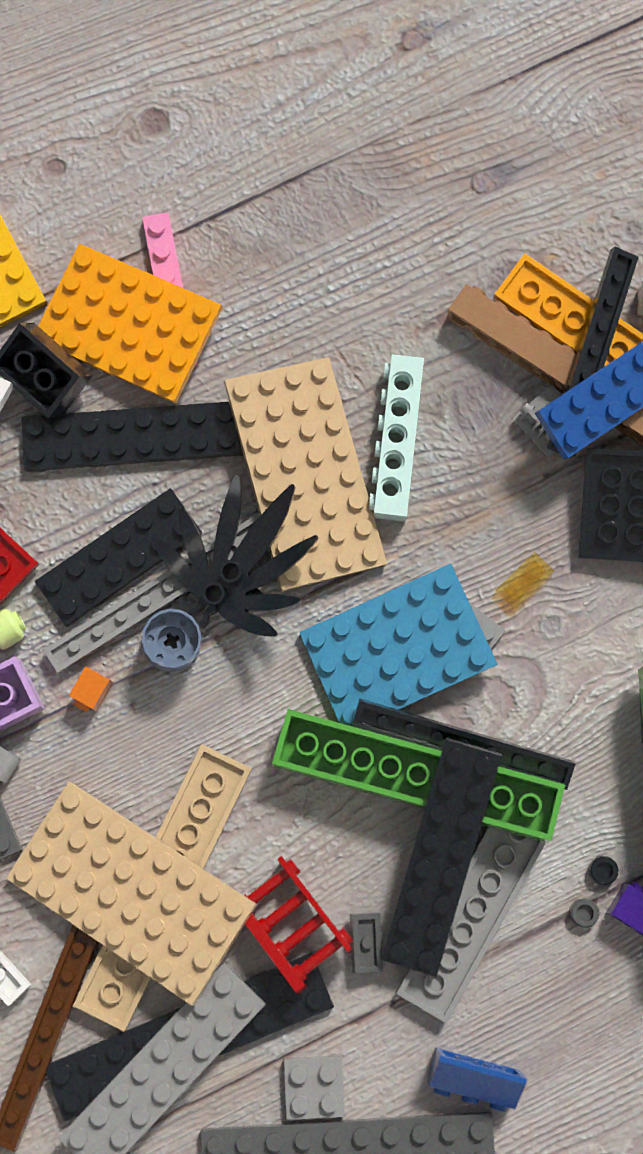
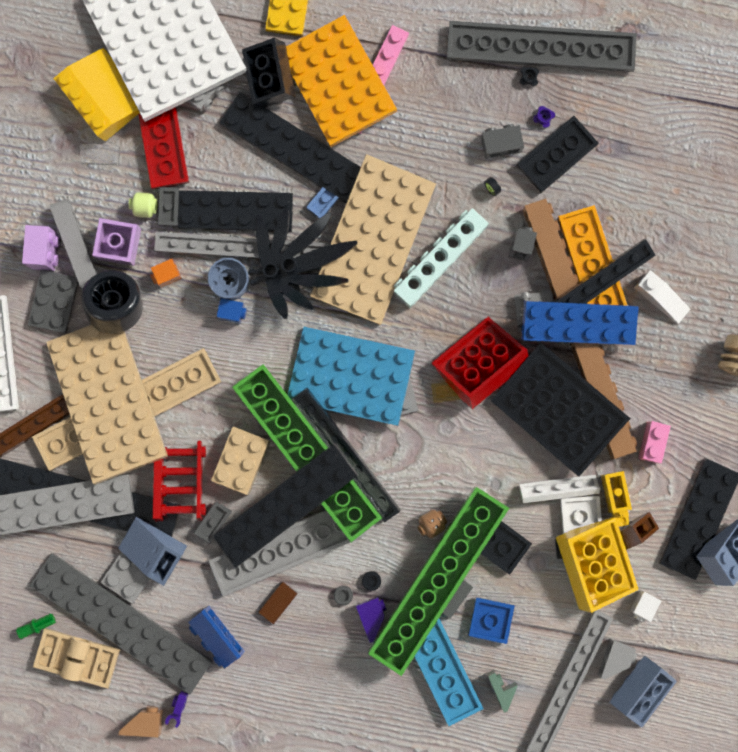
camera: 35 degrees right, 5 degrees up
(36, 609) = (168, 207): none -> dark grey plate
(52, 769) = (112, 301): none -> black wheel
(201, 676) = (231, 311): none -> blue brick
(213, 475) = (322, 203): none -> medium blue plate
(322, 1033) = (152, 550): none -> sand blue slope
(328, 122) = (541, 46): none -> dark grey plate
(338, 158) = (533, 72): none -> black plate
(345, 844) = (240, 461): none -> tan brick
(366, 257) = (502, 141): none -> dark grey brick
(392, 190) = (542, 110): none -> dark purple plate
(394, 315) = (492, 186): none -> black tile
(439, 227) = (557, 154): none -> black plate
(480, 353) = (522, 243): none -> dark grey brick
(515, 980) = (278, 602): none -> reddish brown tile
(534, 521) = (480, 362): none -> red slope
(622, 749) = (432, 523): none -> medium nougat head

